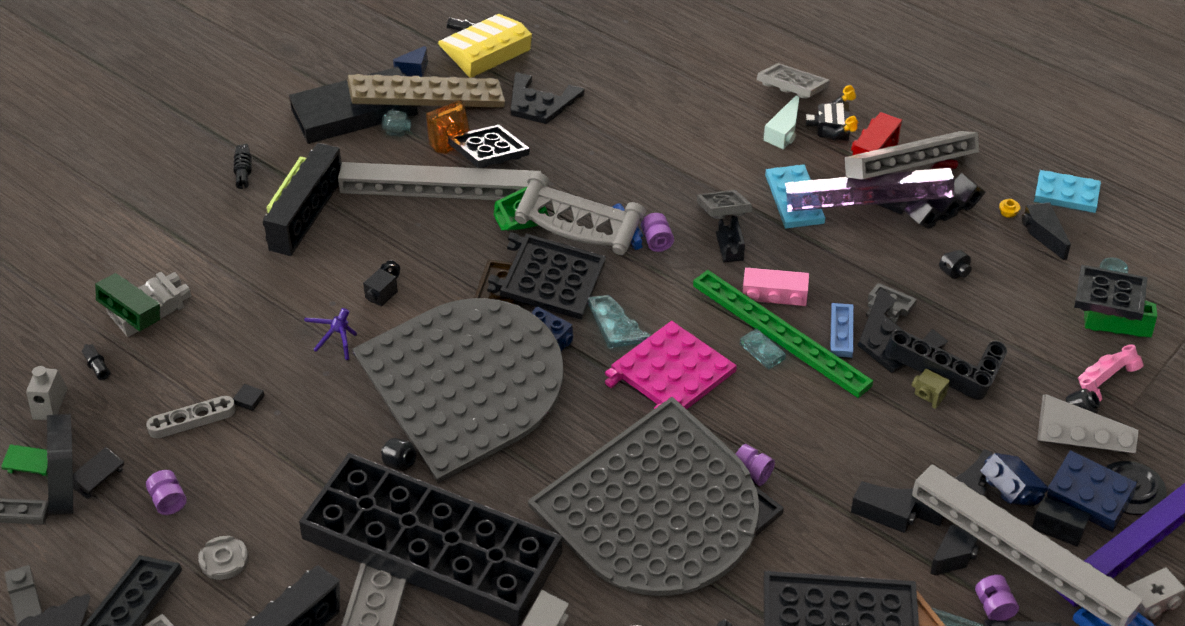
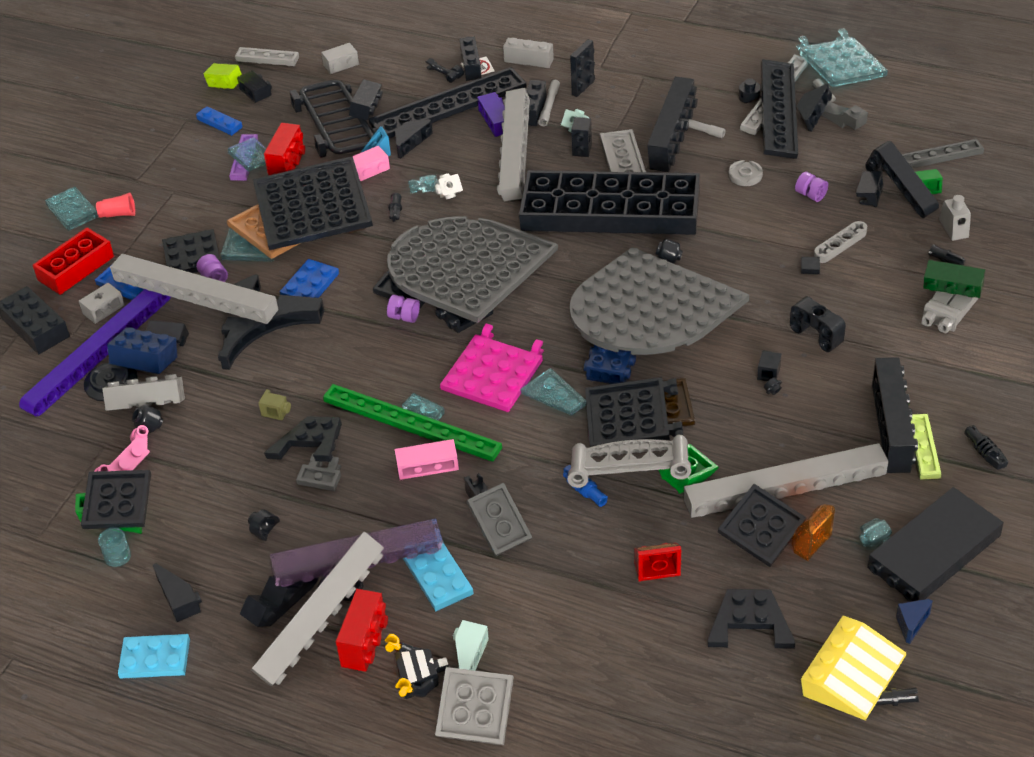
camera: 165 degrees right, 0 degrees up
(301, 299) = (828, 324): none -> black beam
(339, 325) = (773, 307): dark purple plant -> none
(424, 90) = (865, 566): dark tan plate -> none
(594, 140) = (658, 561): none -> red slope
(657, 232) = (552, 479): medium lavender wheel -> none
(841, 330) = (358, 438): medium blue plate -> none
(864, 552) = (310, 280): none -> blue plate
(962, 375) = (258, 415): black beam -> none
(1009, 208) = (211, 617): yellow plate -> none
(1014, 479) = (202, 339): dark blue brick -> none

